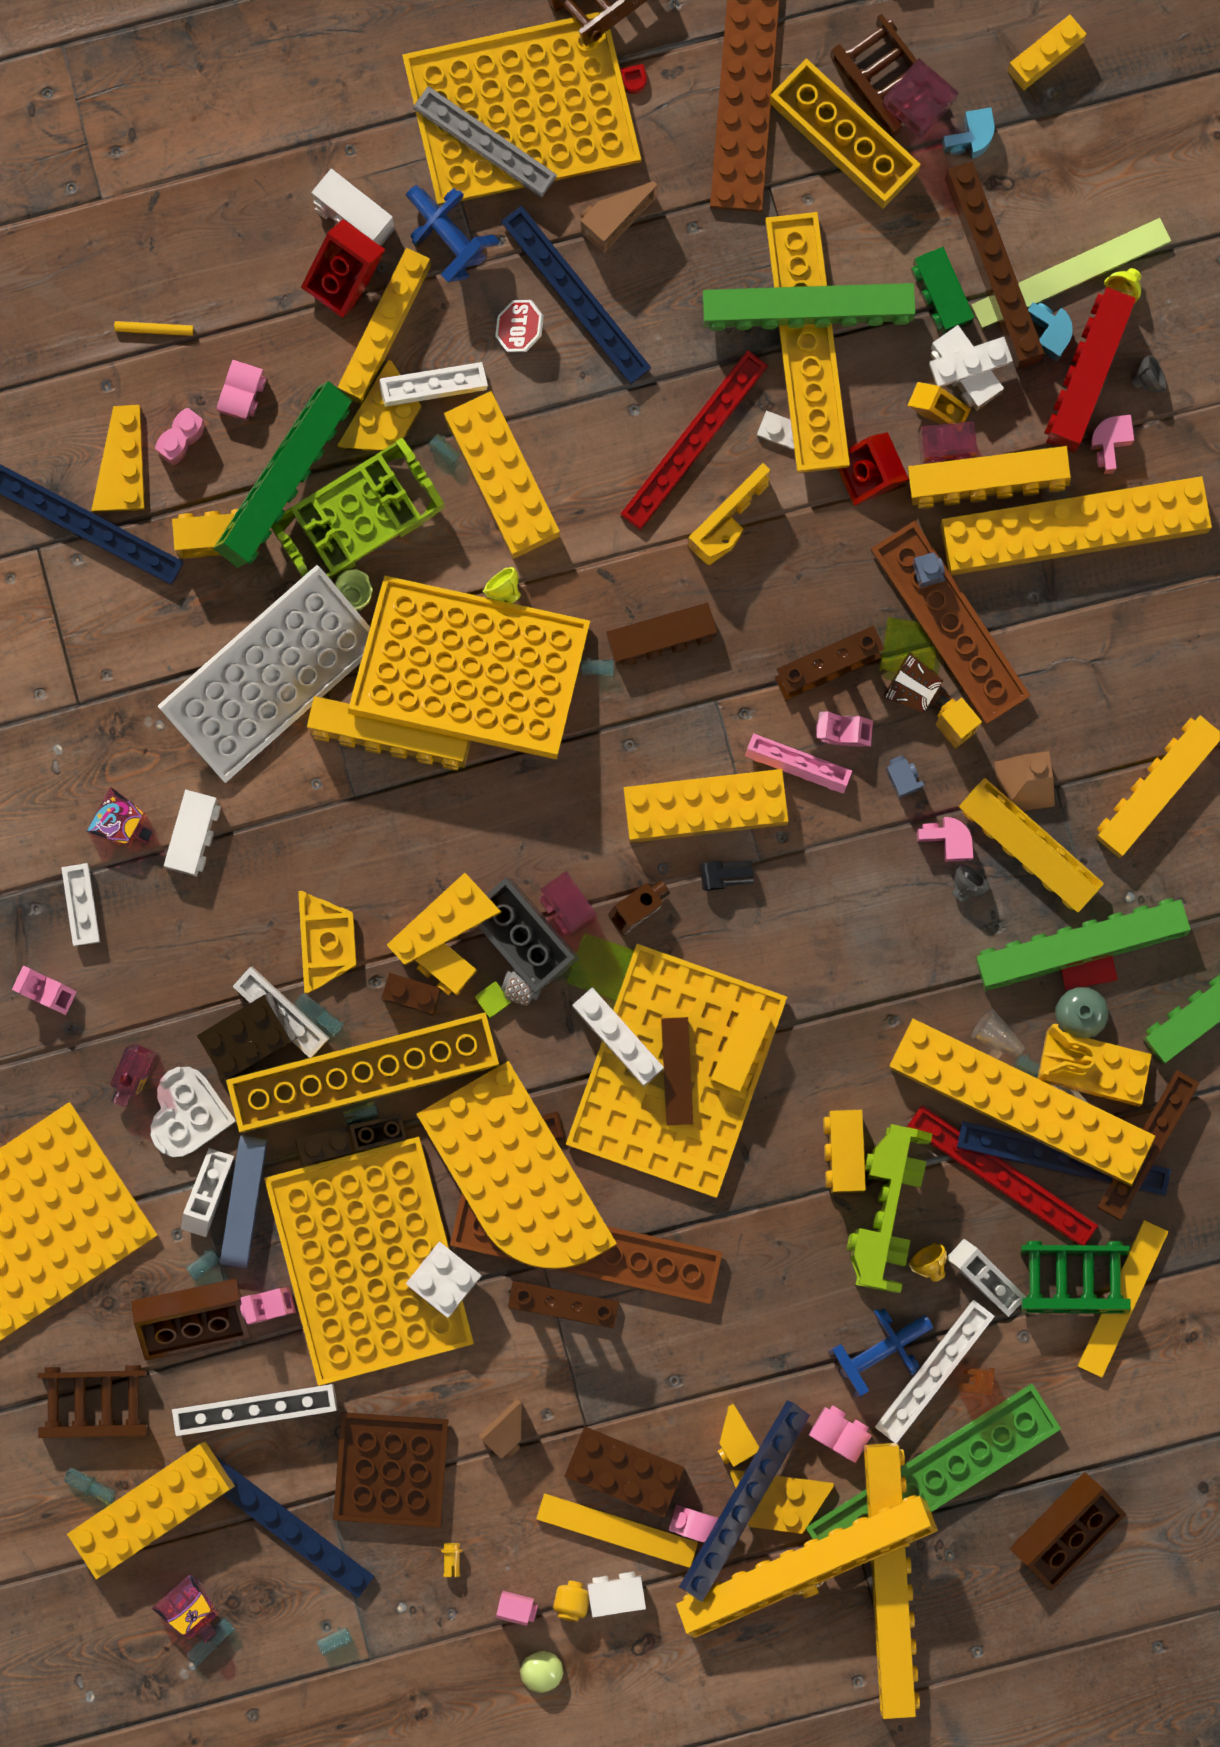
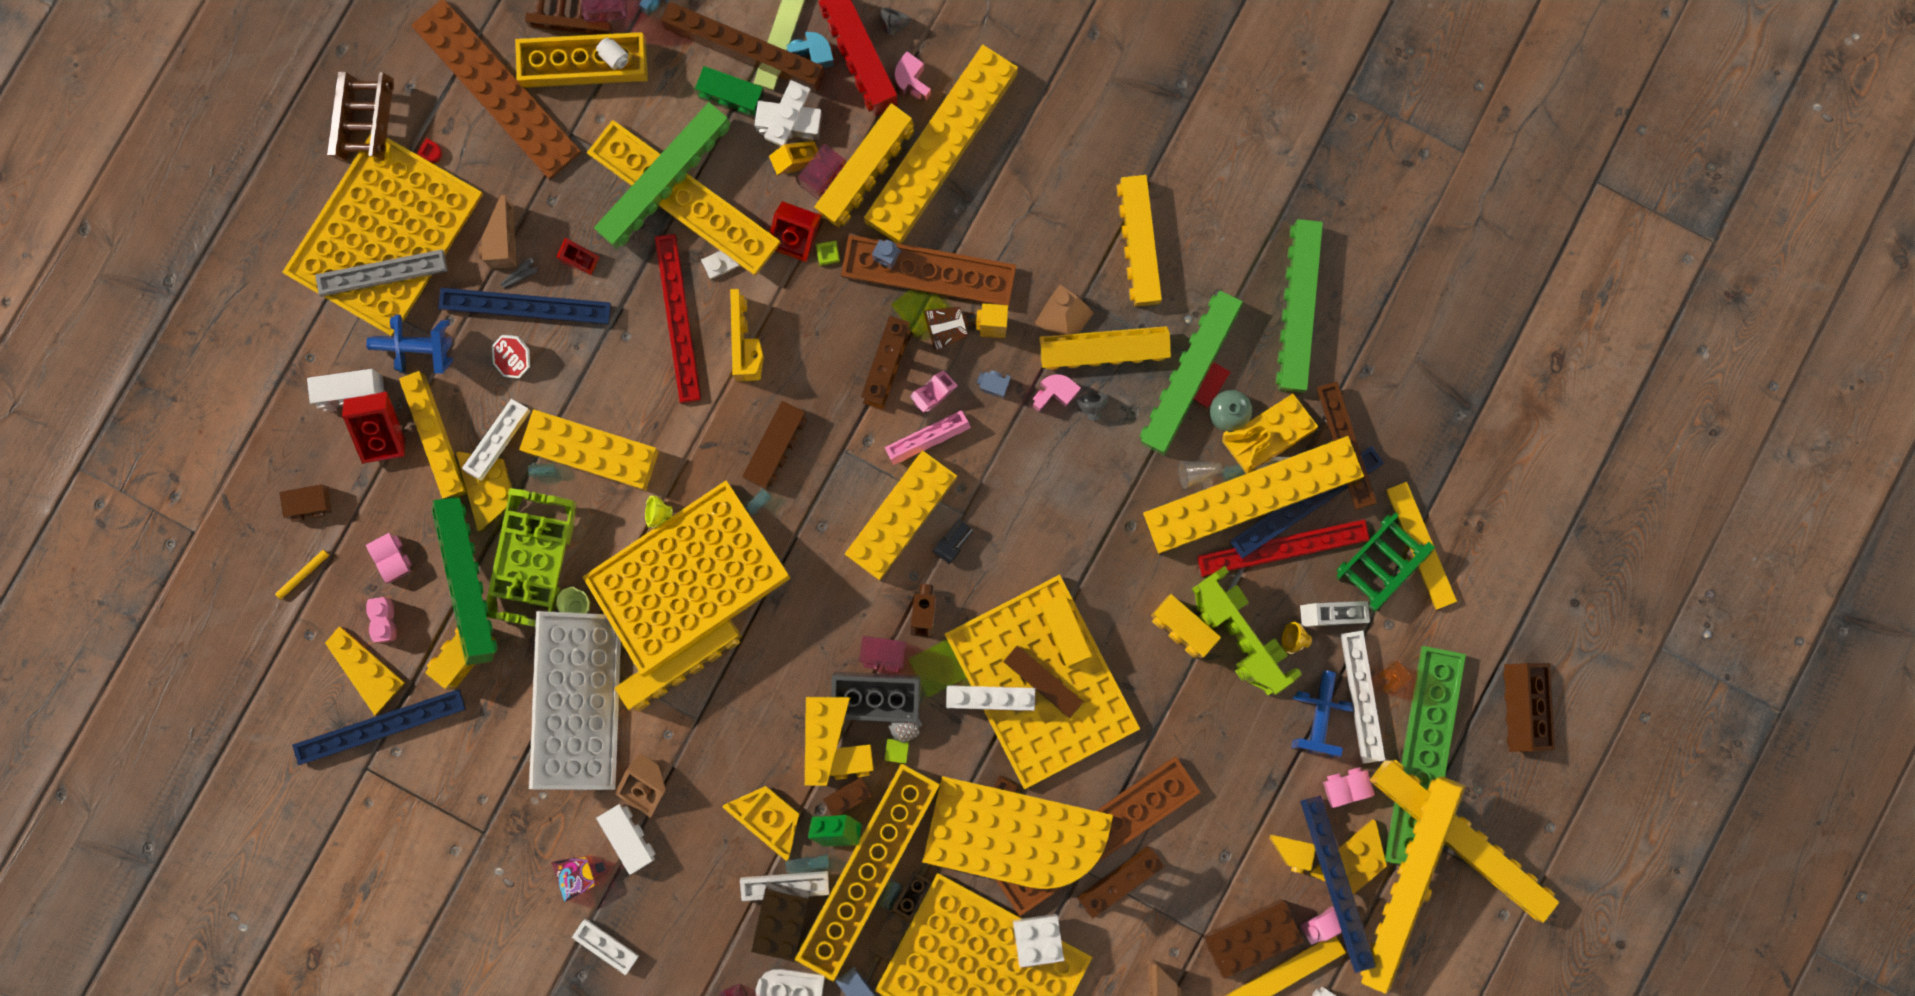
camera: 45 degrees left, 0 degrees up
(219, 270) = (305, 502): none -> reddish brown brick
(251, 803) = (642, 785): none -> medium nougat slope
(371, 1009) = (835, 830): none -> green piece
(602, 263) = (522, 272): none -> dark grey piece
(664, 299) = (577, 257): none -> red slope
(875, 157) = (612, 53): none -> white brick
(880, 517) = (827, 253): none -> lime tile

